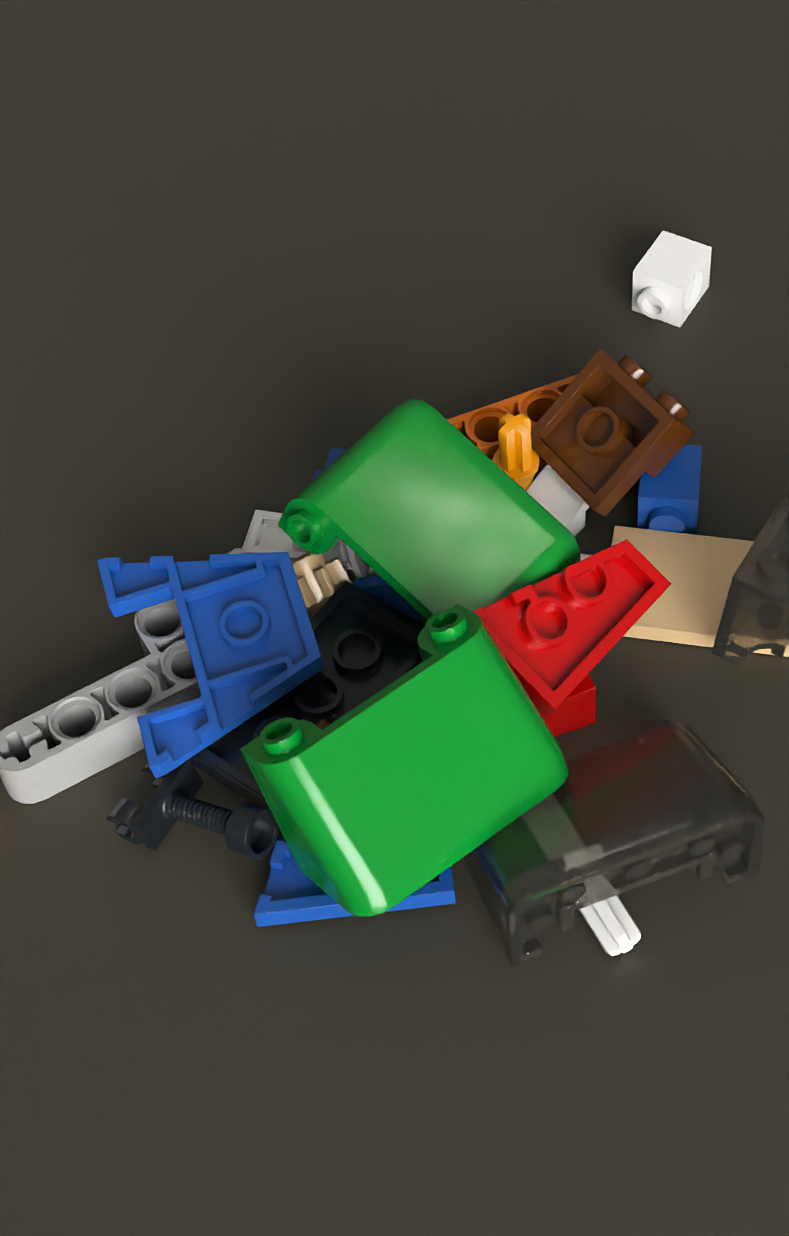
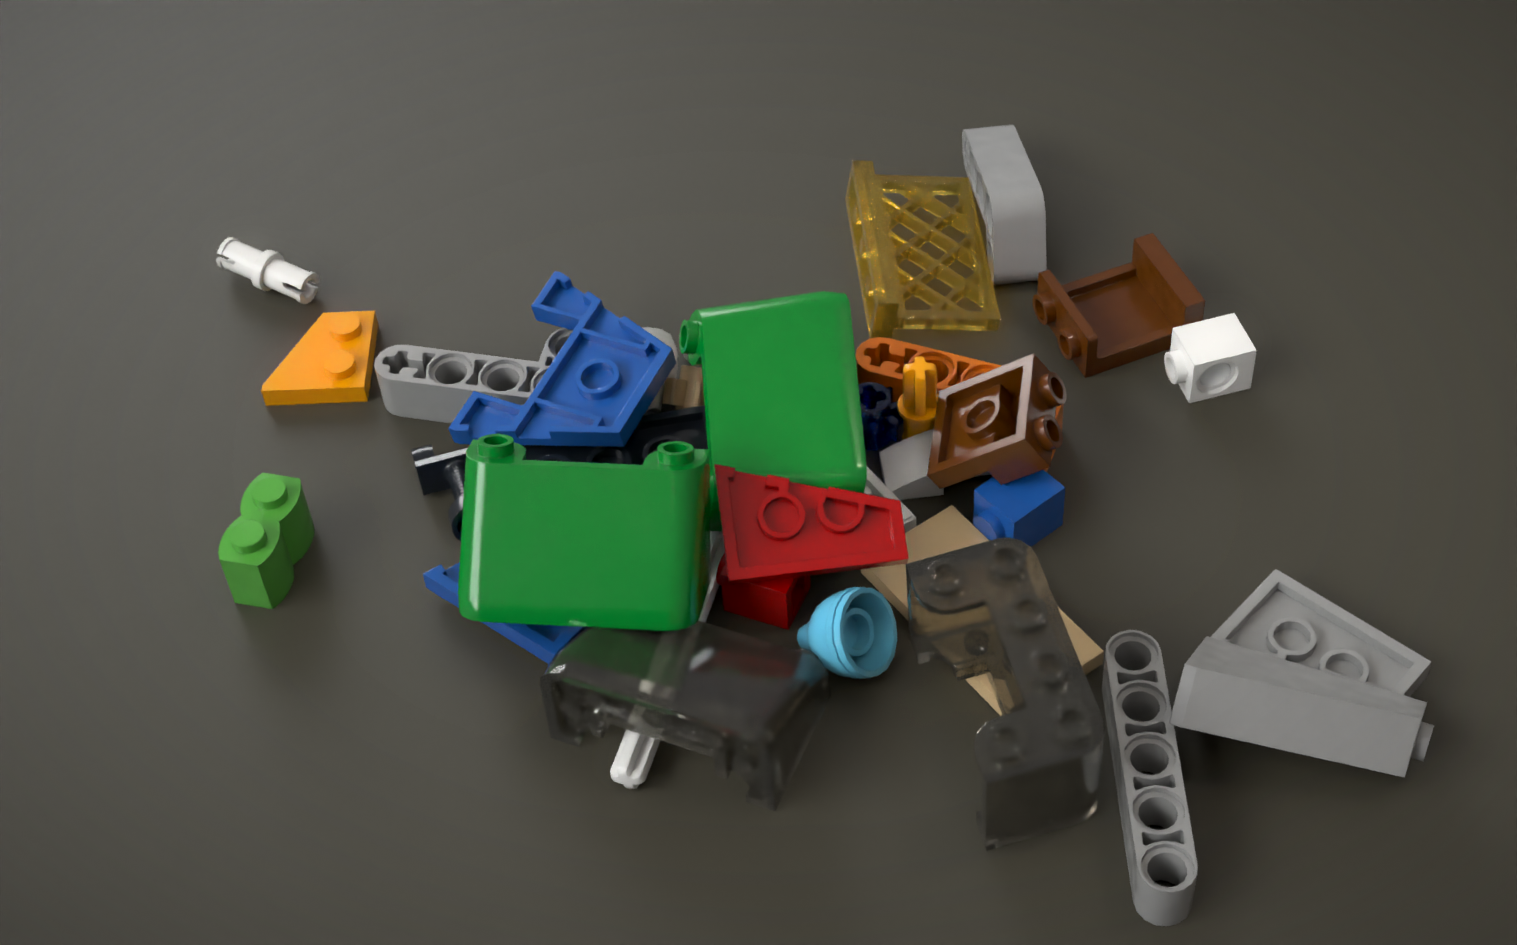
camera: 40 degrees right, 5 degrees down
(69, 1001) = (266, 540): none -> bright green brick
(325, 370) = (880, 279): none -> clear yellow fence
(386, 250) = (1008, 201): none -> light grey beam
(559, 285) = (1119, 311): none -> reddish brown panel
(666, 684) = (852, 633): none -> medium azure helmet

